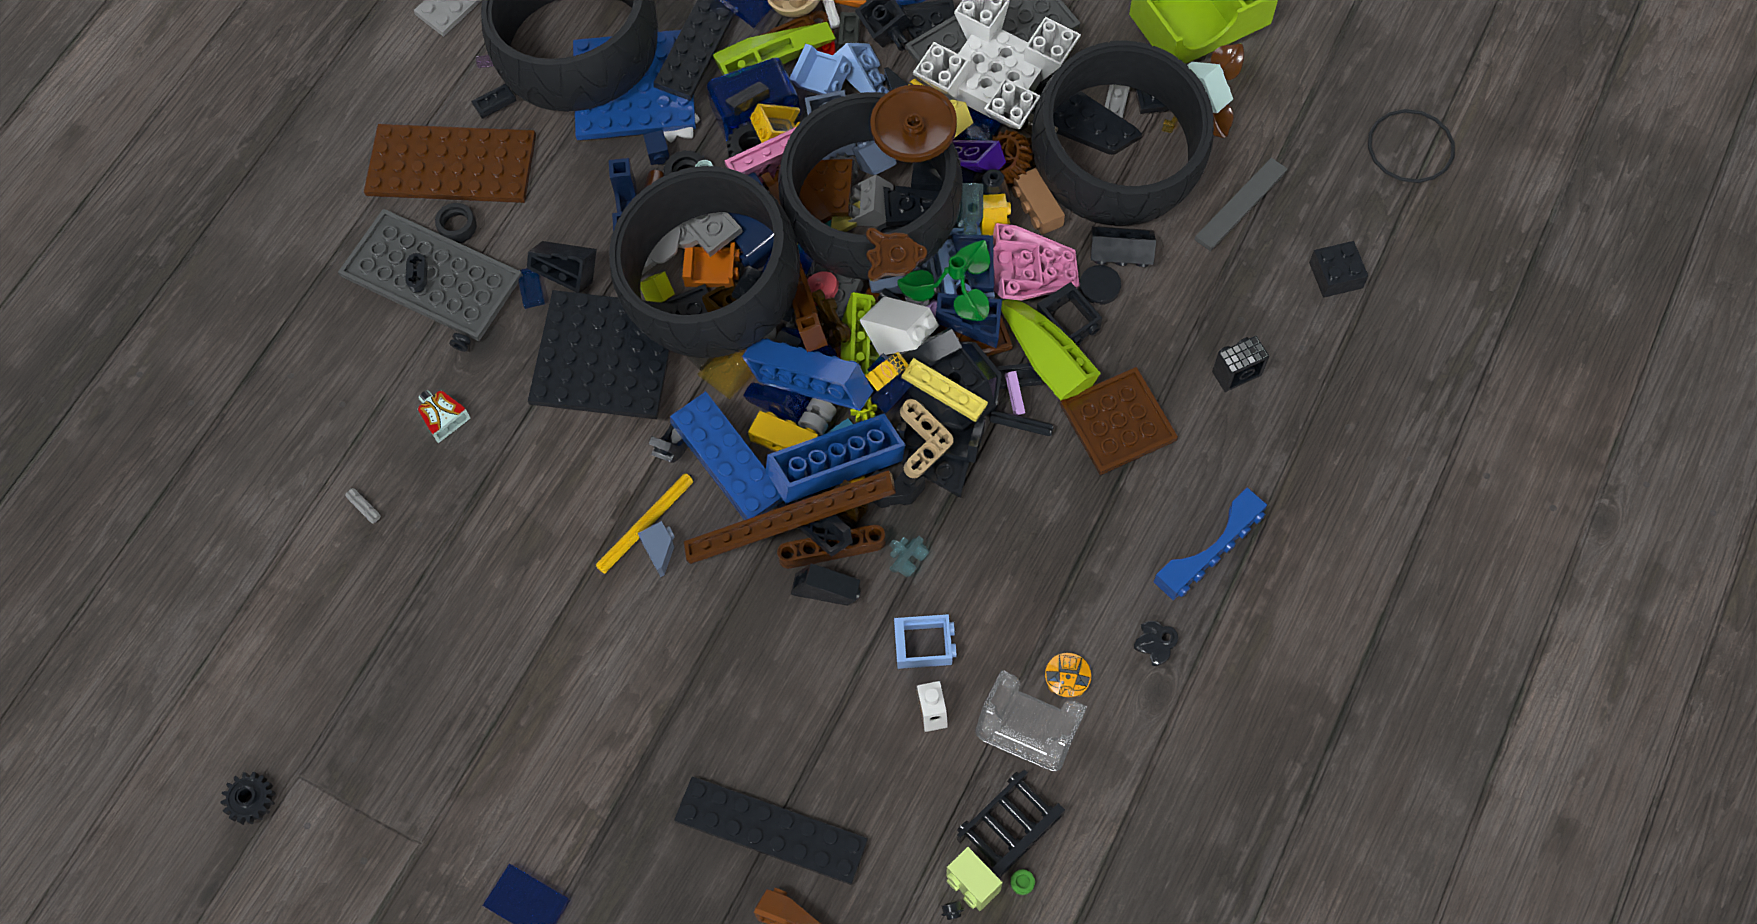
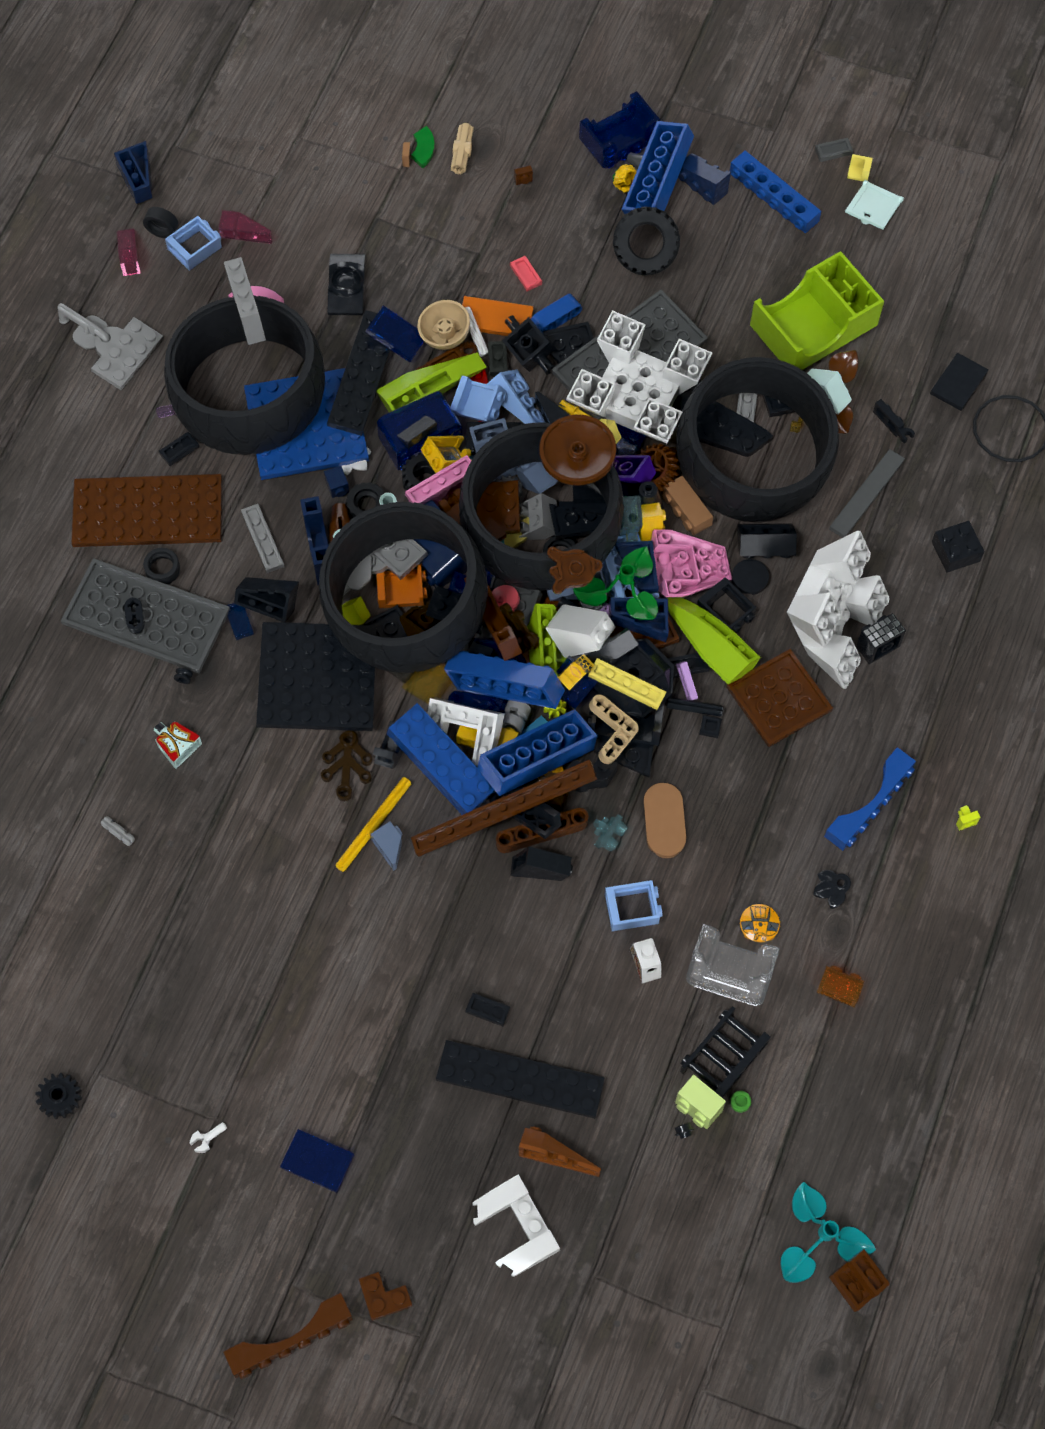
camera: 10 degrees left, 0 degrees up
(406, 863) = (206, 1137): none -> white bar
(569, 202) = (262, 538): none -> light grey tile
(624, 452) = (346, 762): none -> dark brown plant
(744, 745) = (487, 1009): none -> black plate
(782, 419) = (486, 722): none -> white wedge
(972, 547) = (664, 820): none -> medium nougat tile
(1036, 446) = (710, 726): none -> black tile
(1154, 757) = (840, 986): none -> clear orange brick
(1186, 313) = (831, 596): none -> white slope
(1276, 127) = (892, 421): none -> black plate
(1320, 575) = (966, 818): none -> neon yellow tile
(1356, 91) = (959, 381): none -> black tile

